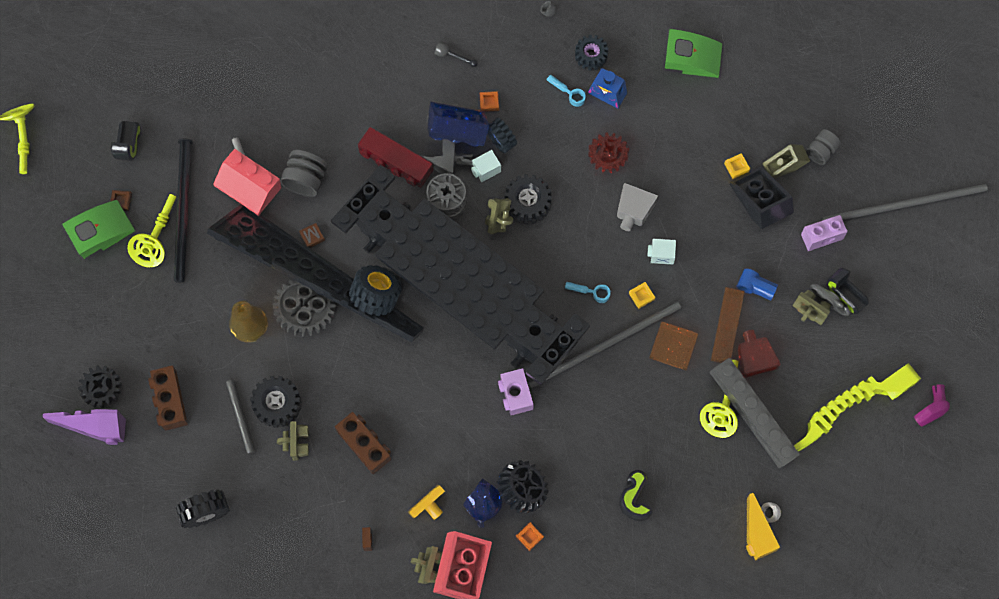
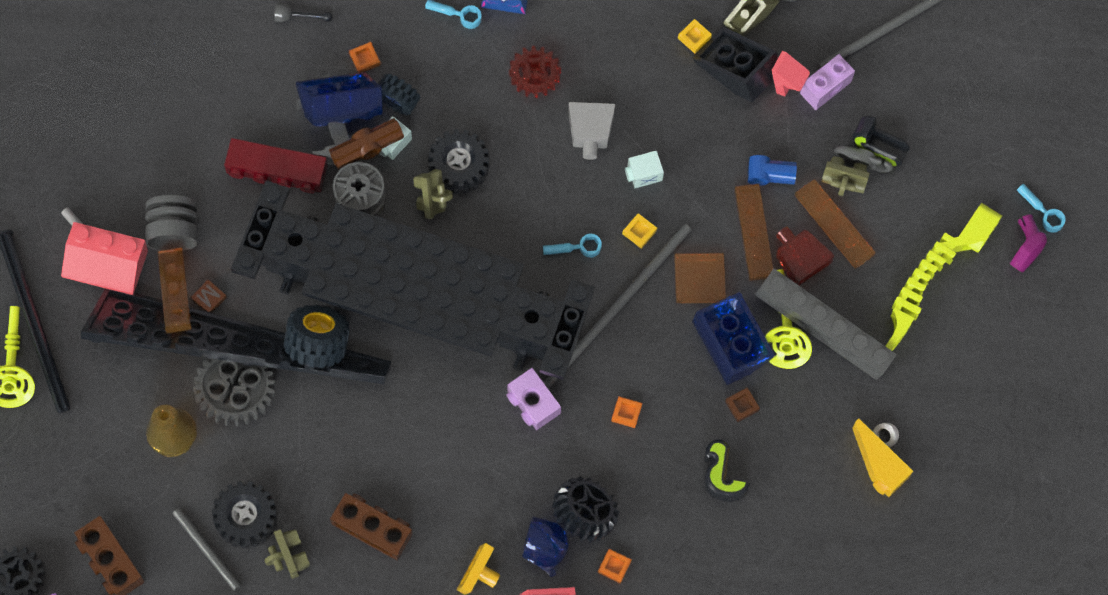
camera: 25 degrees left, 0 degrees up
(287, 222) = (174, 290): none -> clear orange tile
(464, 163) = (366, 143): none -> reddish brown piece
(582, 425) = (626, 412): none -> orange tile
(670, 451) = (742, 404): none -> reddish brown tile
(681, 398) = (733, 338): none -> clear blue slope
(790, 340) = (835, 224): none -> clear orange tile
(795, 217) = (788, 74): none -> coral slope
(952, 379) = (1038, 205): none -> medium azure piece

